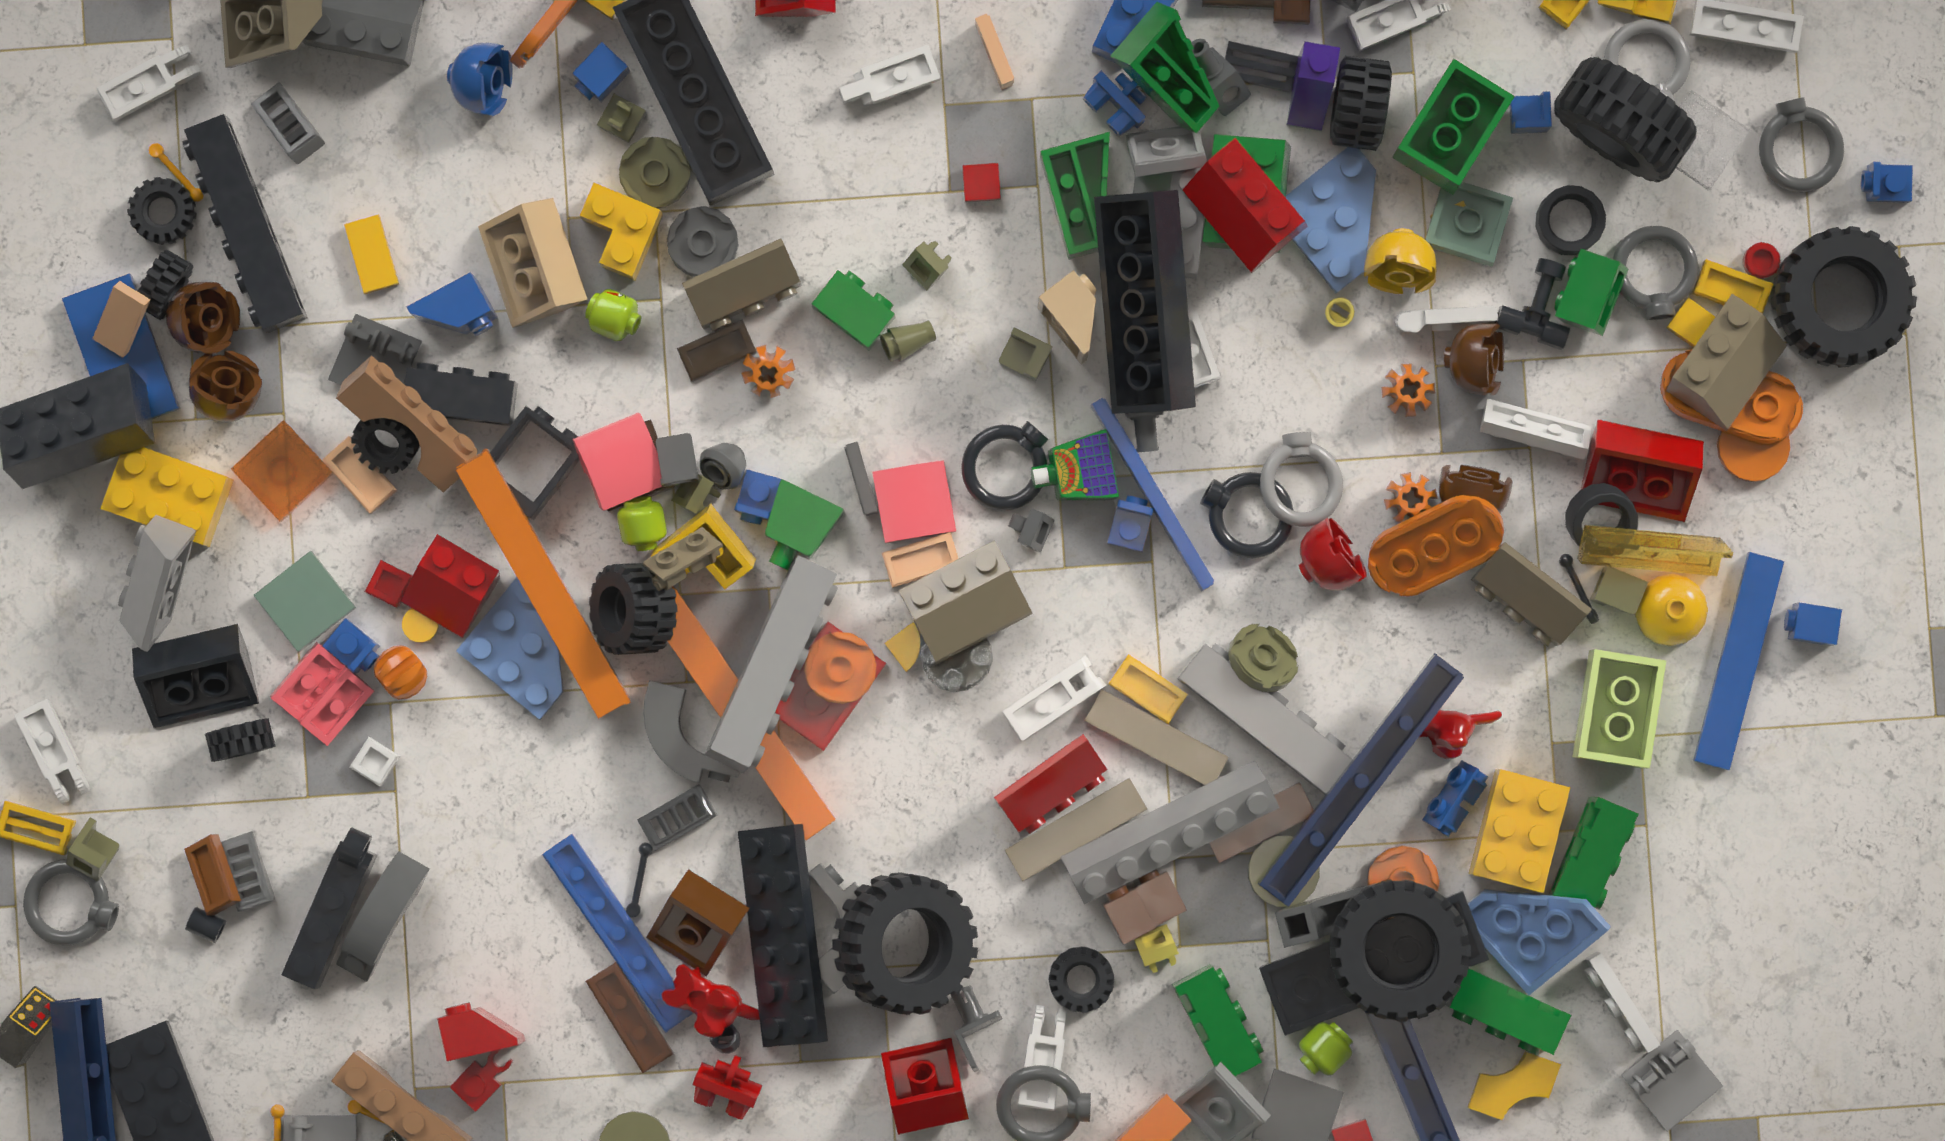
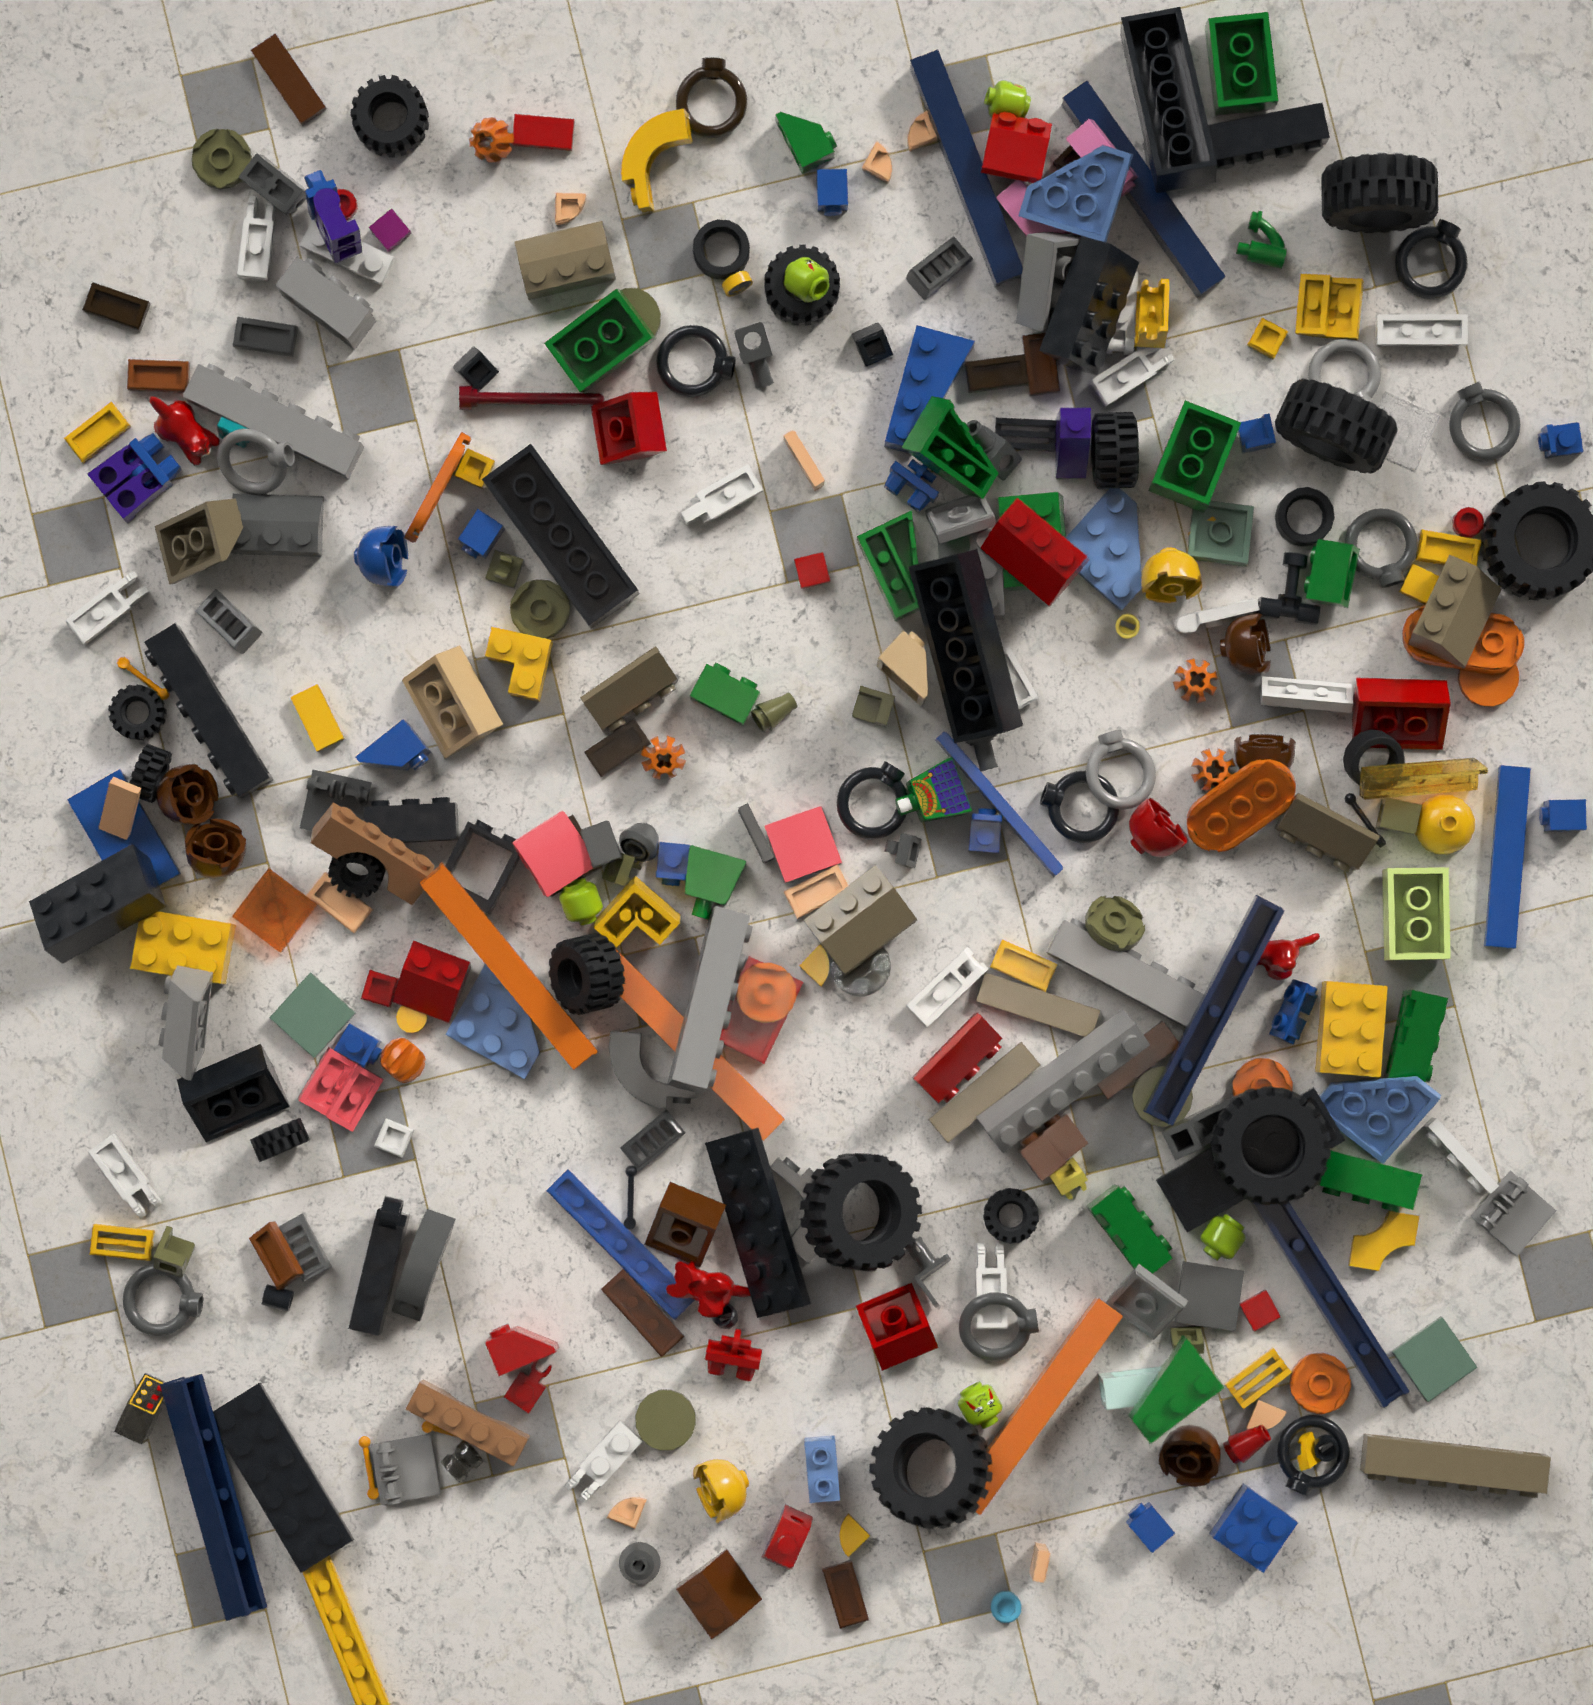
camera: 10 degrees left, 0 degrees up
(613, 314) = (526, 733): lime head -> none
(691, 552) = (626, 919): dark tan hinge -> none
(701, 240) = (589, 659): dark grey tile -> none
(926, 264) = (778, 646): olive tile -> none

